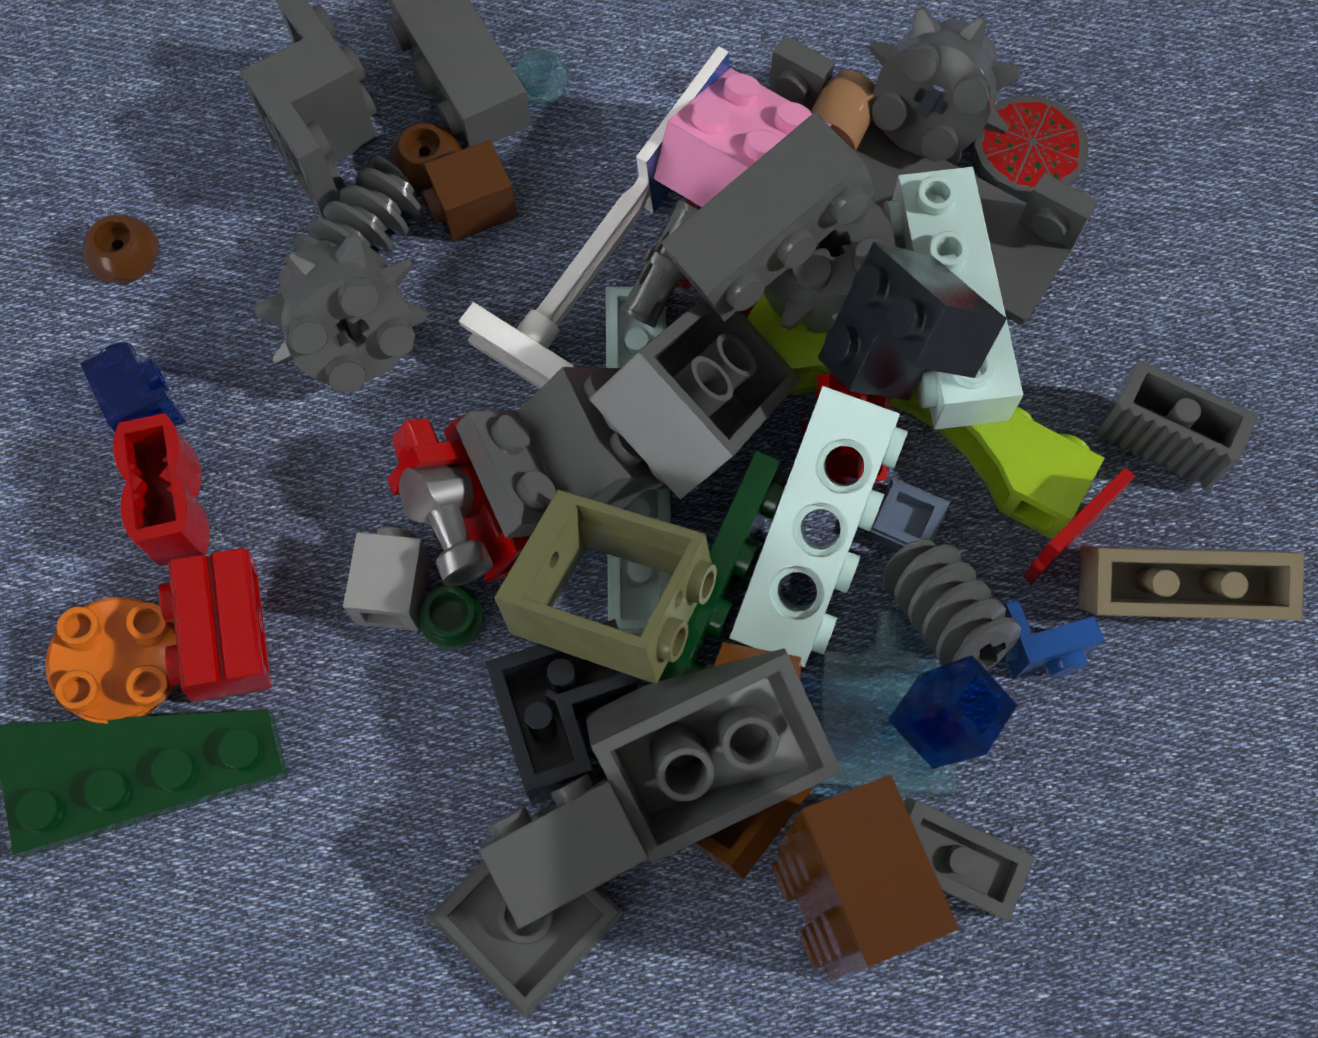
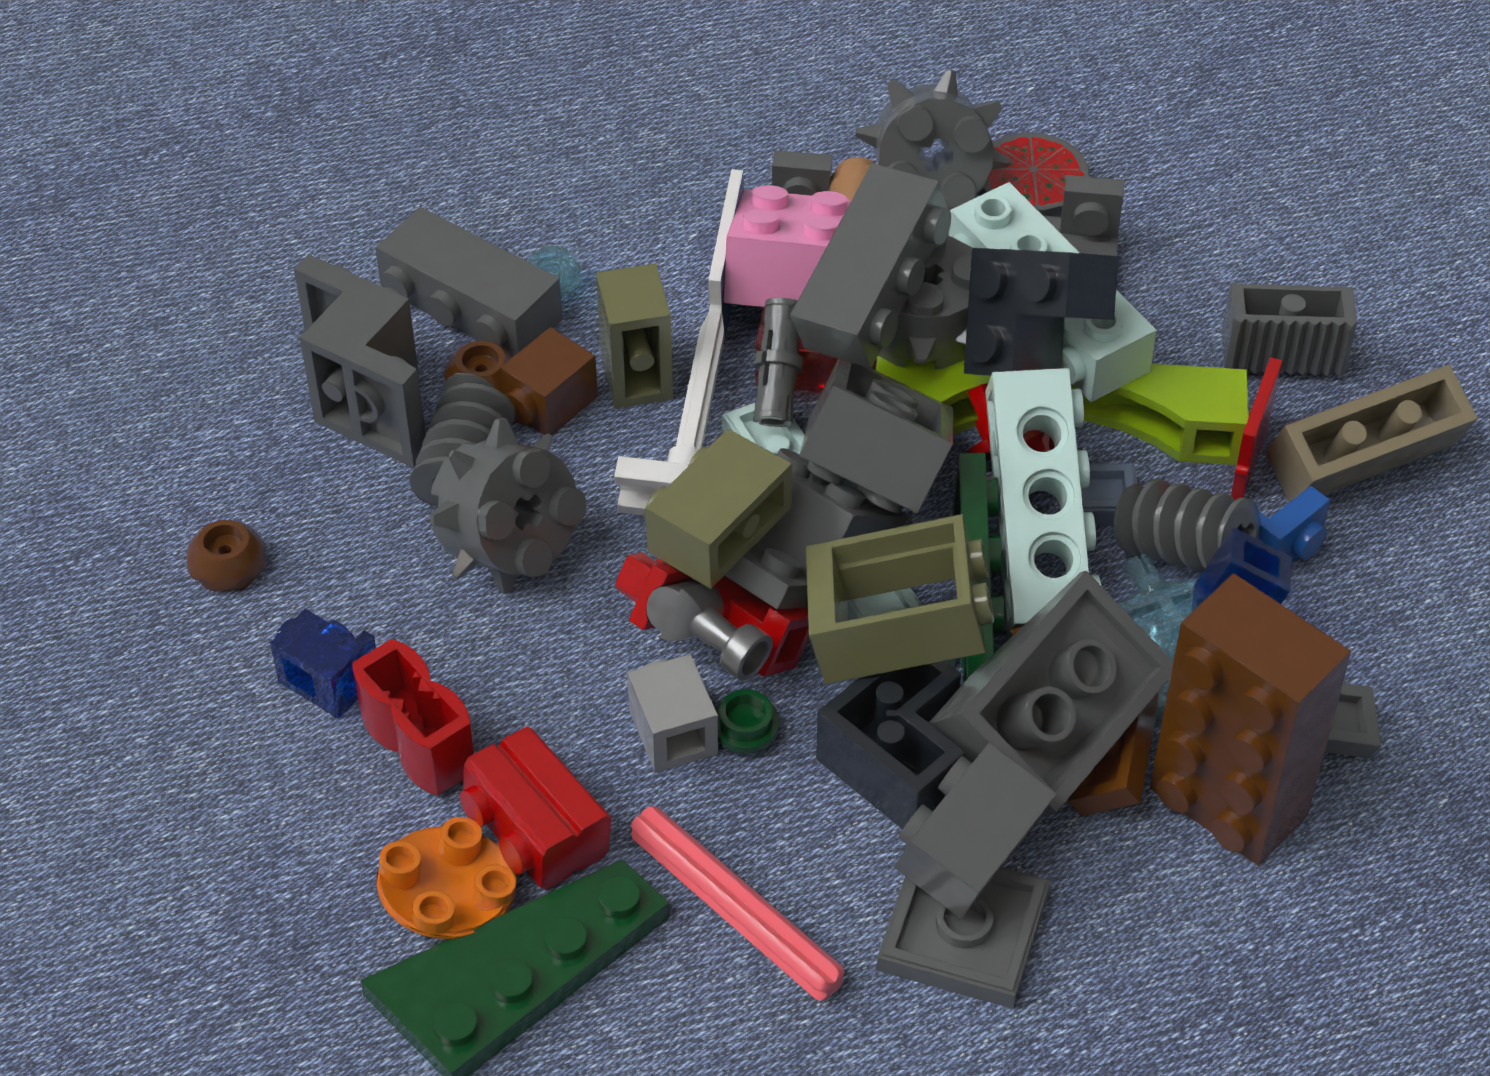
camera: 25 degrees left, 20 degrees down
(343, 800) = (738, 903): none -> coral axle
(489, 419) = (718, 507): none -> olive brick
(557, 177) = (635, 335): none -> olive brick

